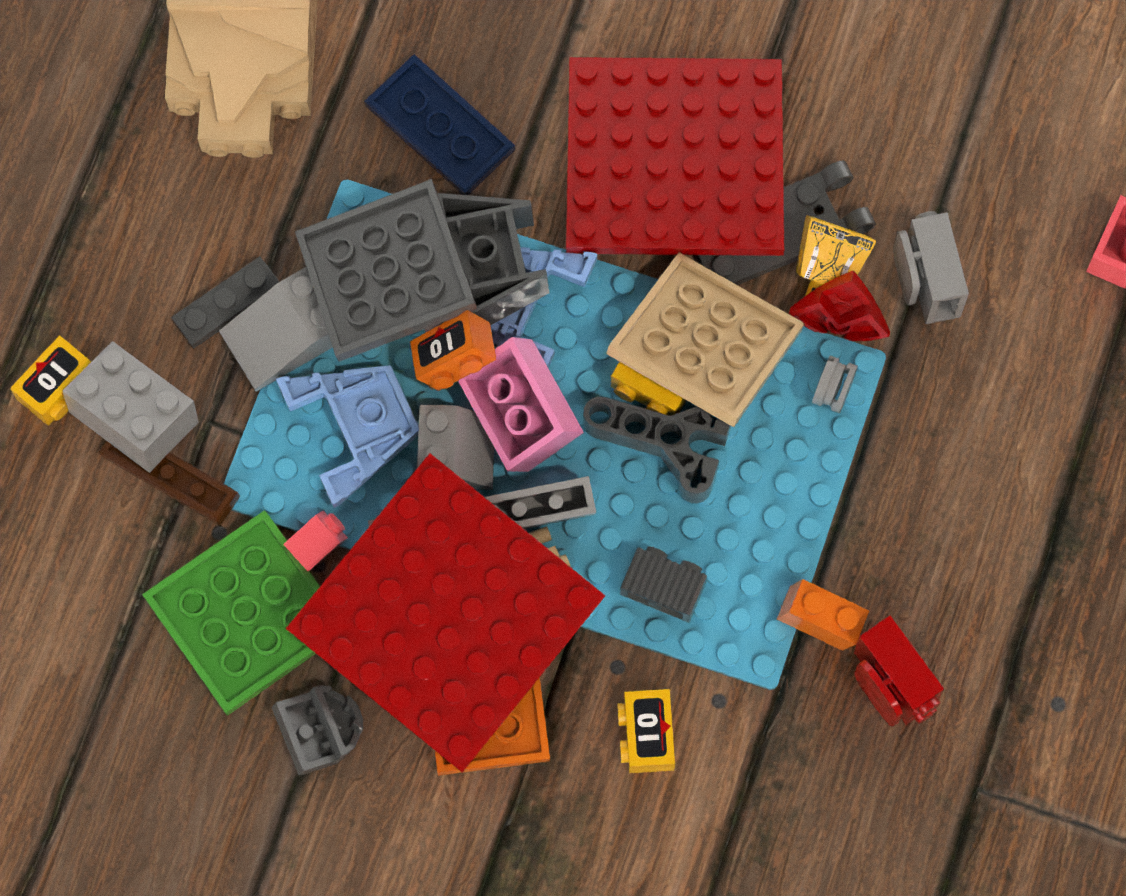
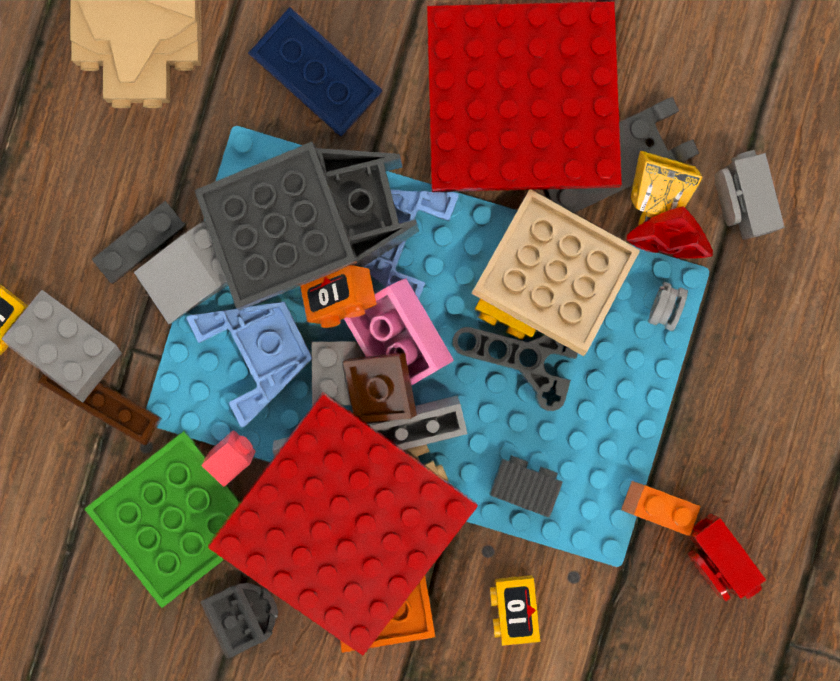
camera: 10 degrees left, 15 degrees up
(497, 454) = (380, 387): none -> reddish brown plate

